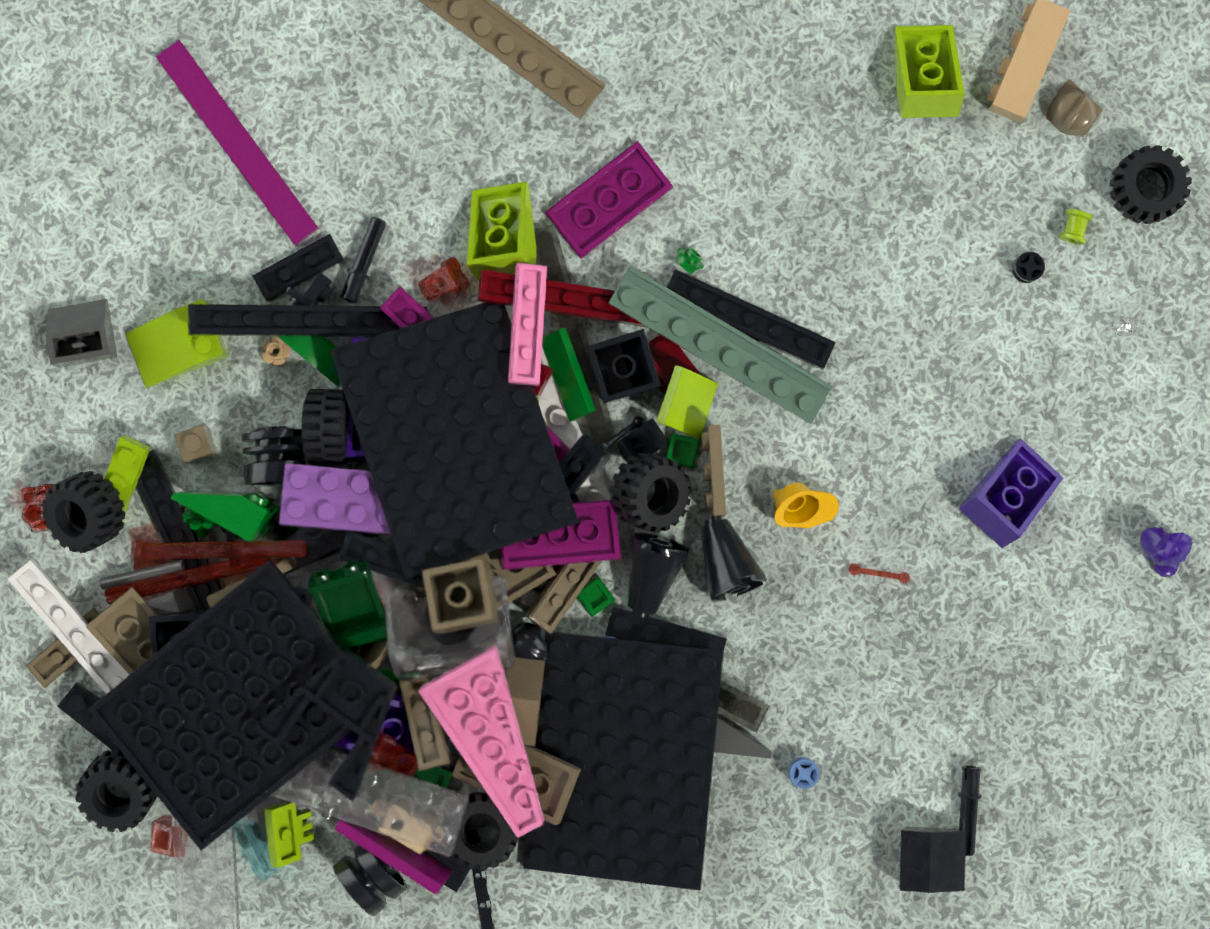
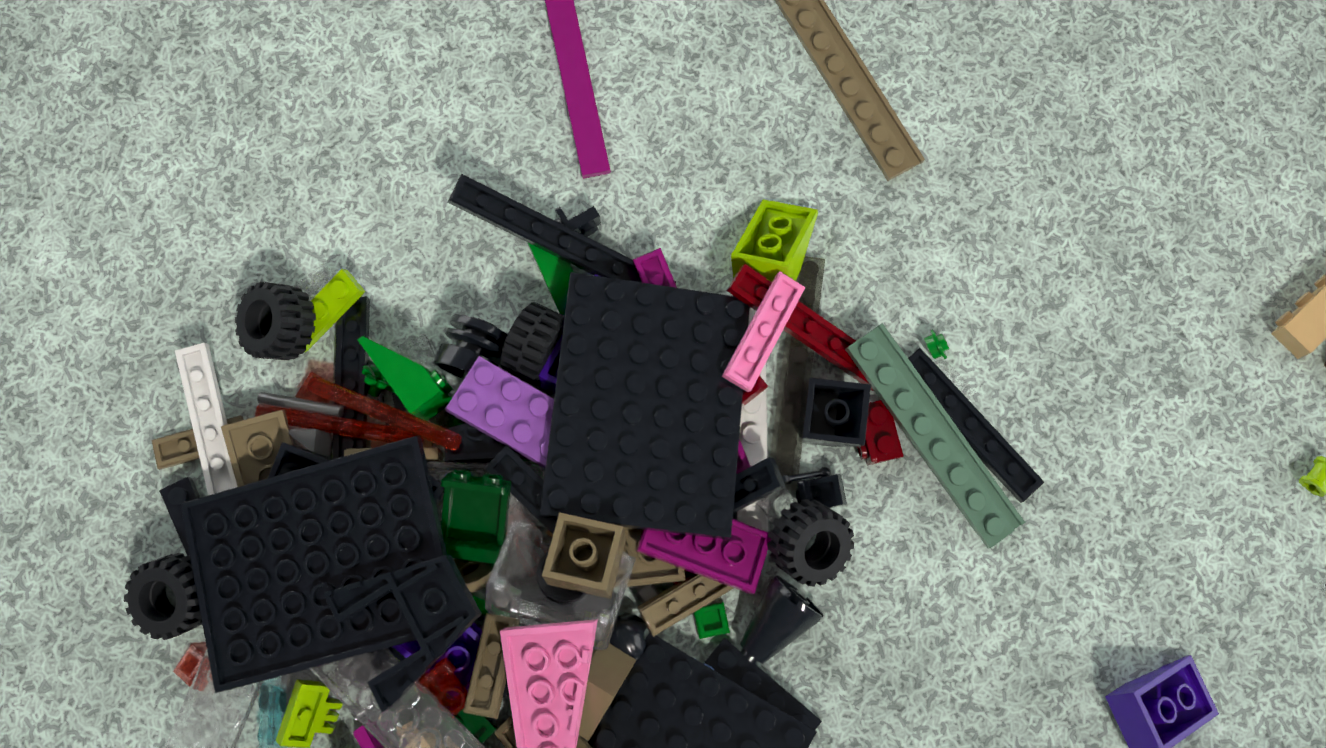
camera: 25 degrees right, 10 degrees down
(33, 509) = (229, 301): clear red plate -> none
(80, 334) = (353, 169): dark grey slope -> none
(167, 351) = (426, 218): lime slope -> none
(195, 444) = (407, 308): dark tan brick -> none
(276, 359) = (523, 267): tan plate -> none
(298, 267) = (576, 197): black tile -> none
(363, 260) = (628, 224): black axle -> none
(448, 277) = (701, 264): clear red plate -> none
(567, 374) = (778, 398): green tile -> none
(609, 199) = (884, 261): magenta tile -> none
(682, 450) = (857, 516): green tile -> none
(687, 402) = (881, 473): lime tile -> none
(713, 470) = (880, 550): dark tan plate -> none
(728, 561) = (856, 645): black cone -> none
(802, 507) = (952, 625): yellow piece -> none
(903, 577) = (976, 710): clear red hinge -> none
(928, 72) = (1229, 276): lime slope -> none
(1034, 262) = (1266, 490): black wheel -> none

